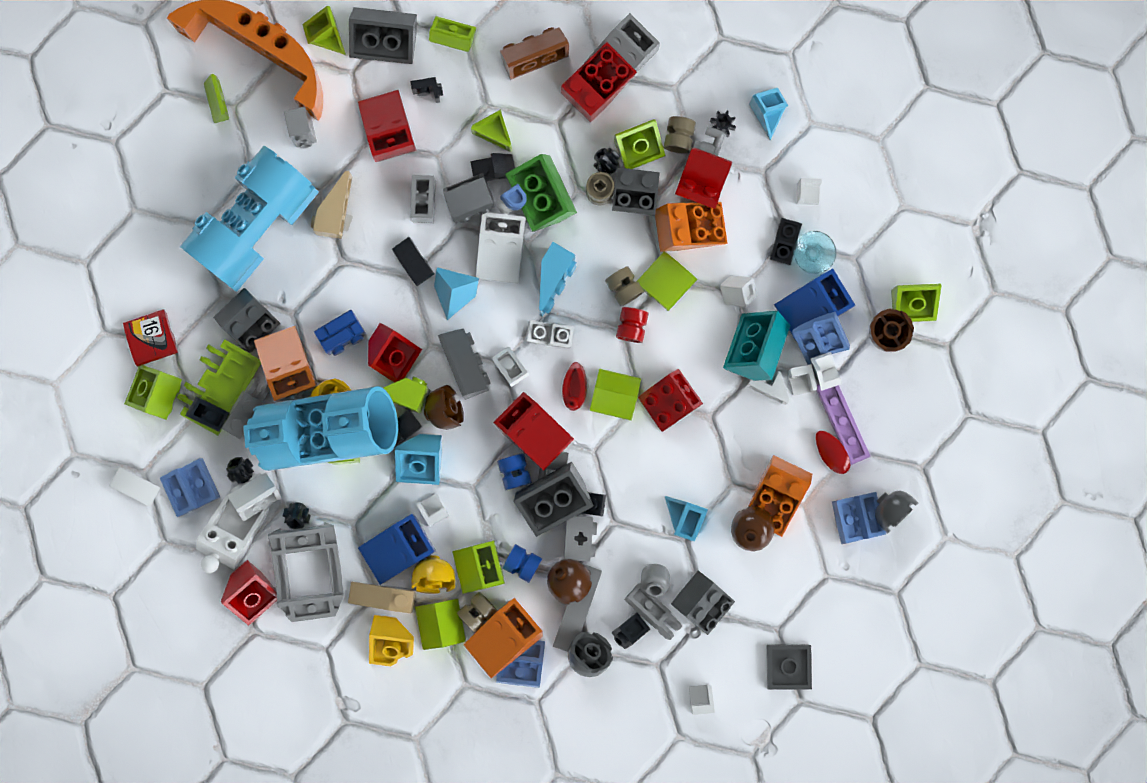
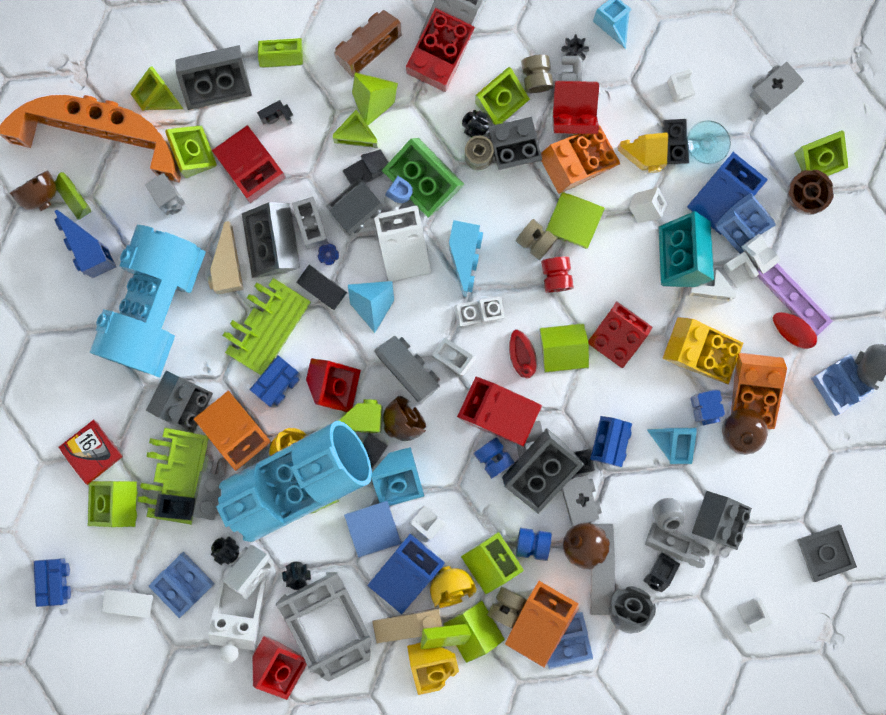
camera: 15 degrees left, 0 degrees up
(73, 443) = (51, 582): none -> blue brick
(184, 84) = (36, 192): none -> reddish brown cylinder
(212, 156) = (90, 254): none -> blue slope
(338, 94) = (191, 150): none -> lime slope
(352, 282) = (269, 327): none -> lime hinge
(381, 497) = (372, 529): none -> medium blue slope
(382, 201) = (270, 239): none -> dark grey slope
(410, 618) = (445, 636): none -> lime slope
(429, 239) = (328, 260): none -> clear blue plate
(522, 103) = (373, 96): none -> lime slope
(627, 494) = (611, 441): none -> blue brick
(726, 494) = (707, 407): none -> blue brick
(741, 441) = (702, 350): none -> yellow slope
(754, 241) = (647, 151): none -> yellow slope
(886, 232) = (785, 78): none -> light grey brick

